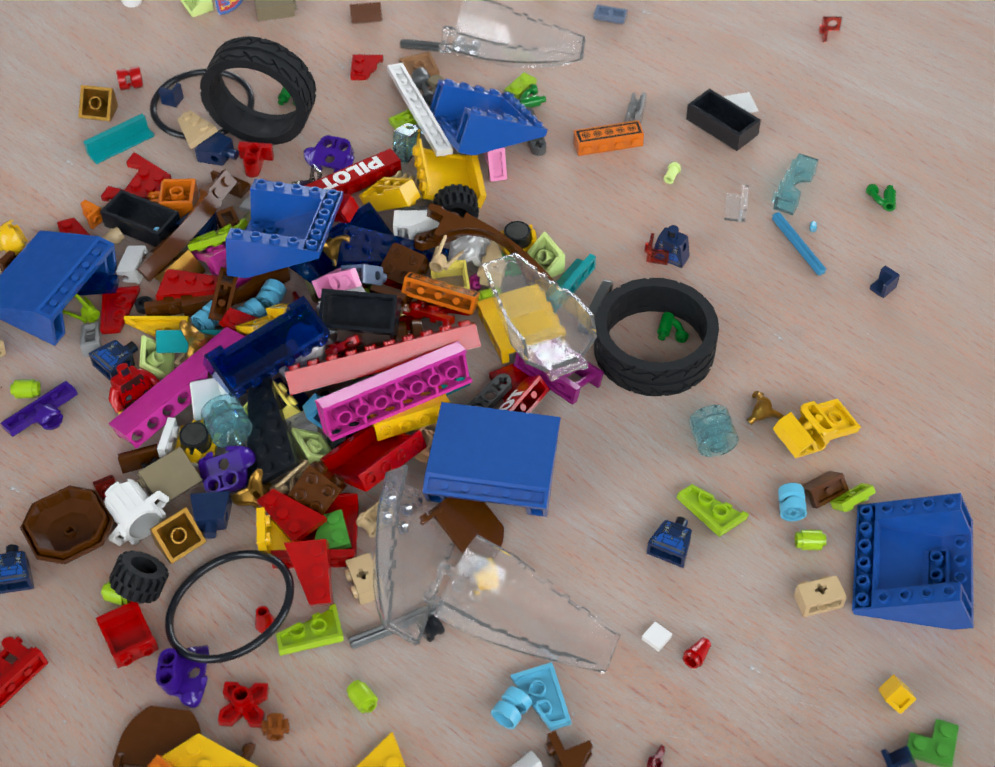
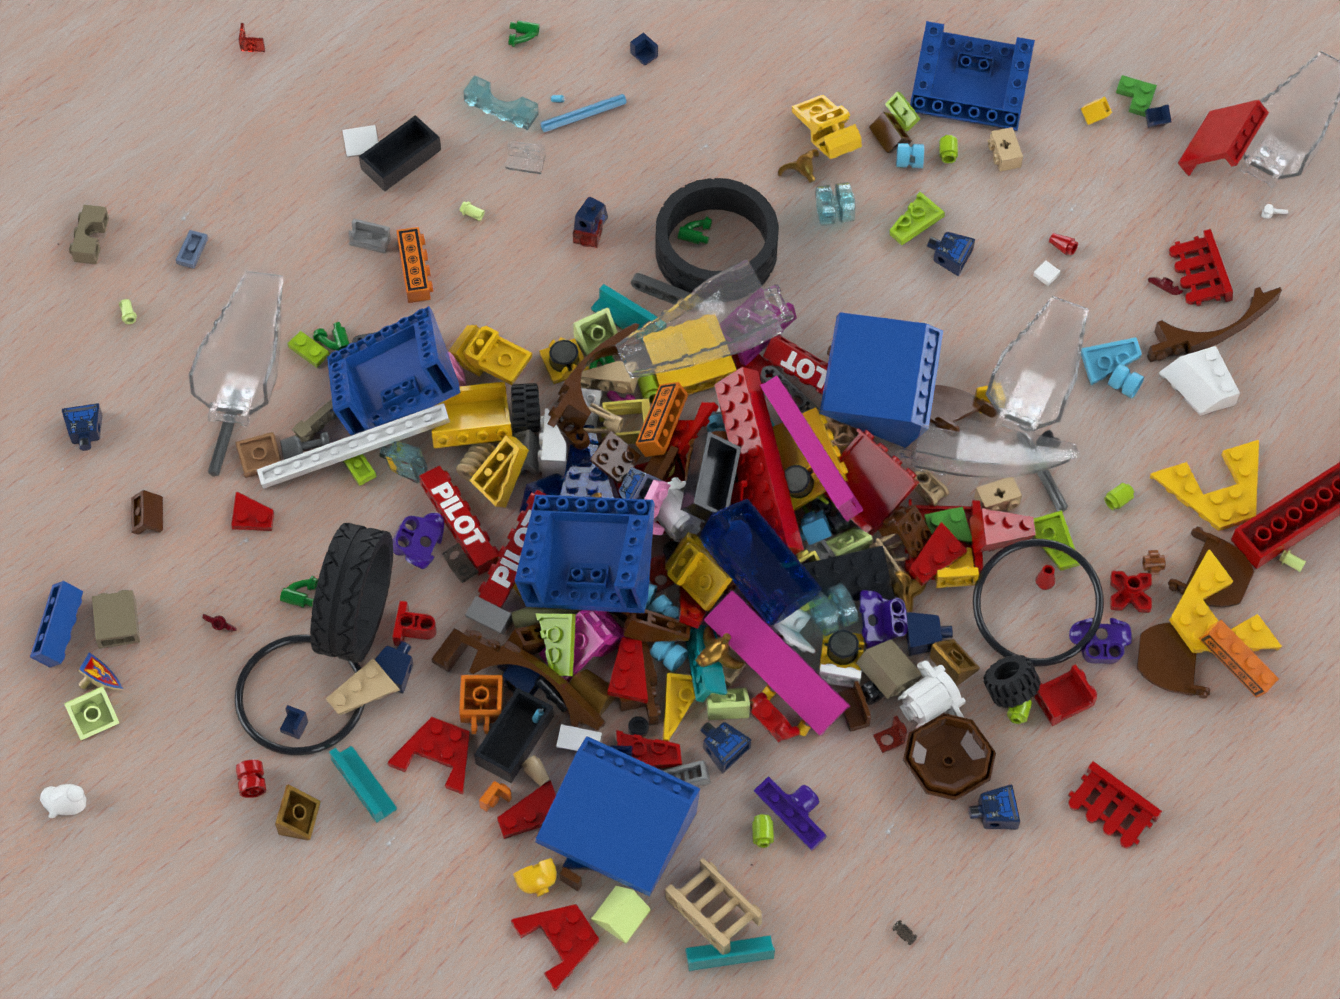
camera: 90 degrees left, 10 degrees up
(512, 184) = (486, 351): none -> yellow piece

